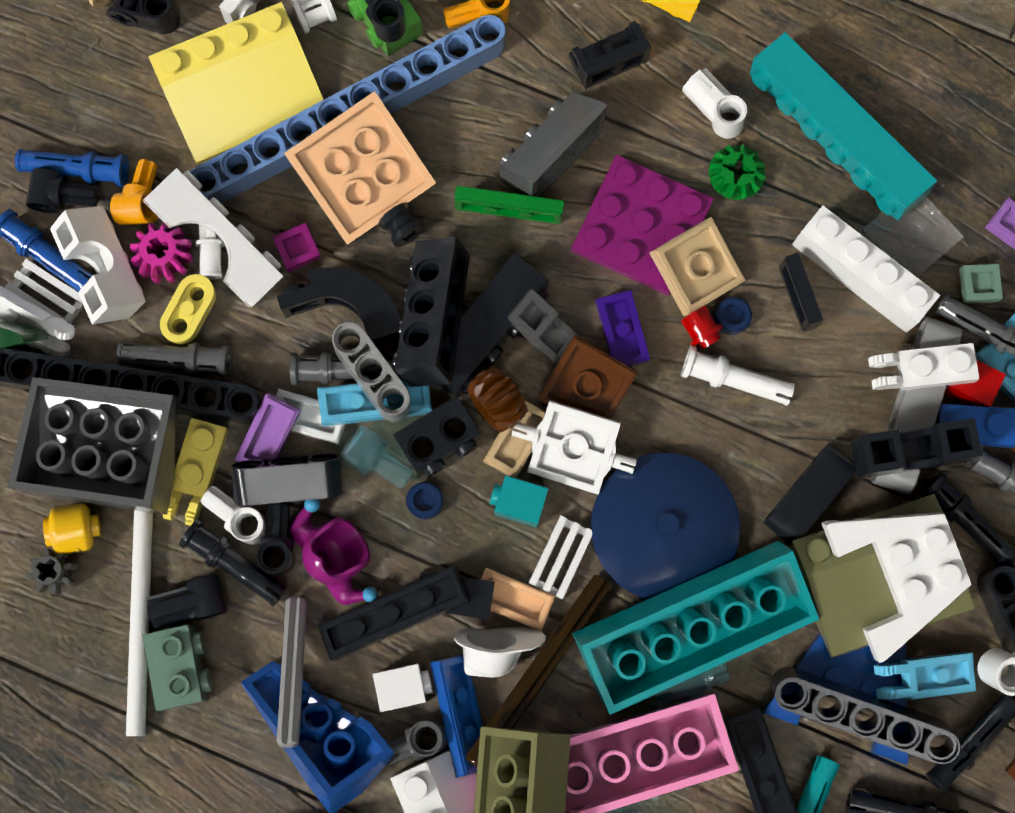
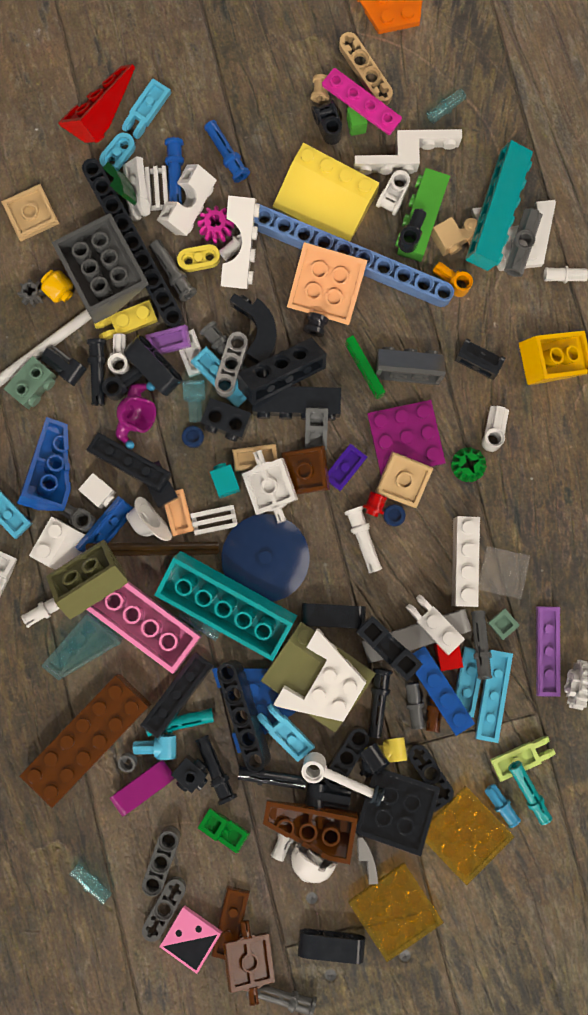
camera: 55 degrees right, 5 degrees up
(51, 191) = (206, 152): black axle -> none
(128, 206) = (225, 188): light orange axle -> none
(292, 672) = (66, 436): light grey axle -> none
(296, 247) = (267, 284): magenta plate -> none
(497, 399) = (263, 432): reddish brown gear -> none
(800, 292) = (429, 539): black tile -> none
(841, 127) = (530, 497): teal brick -> none

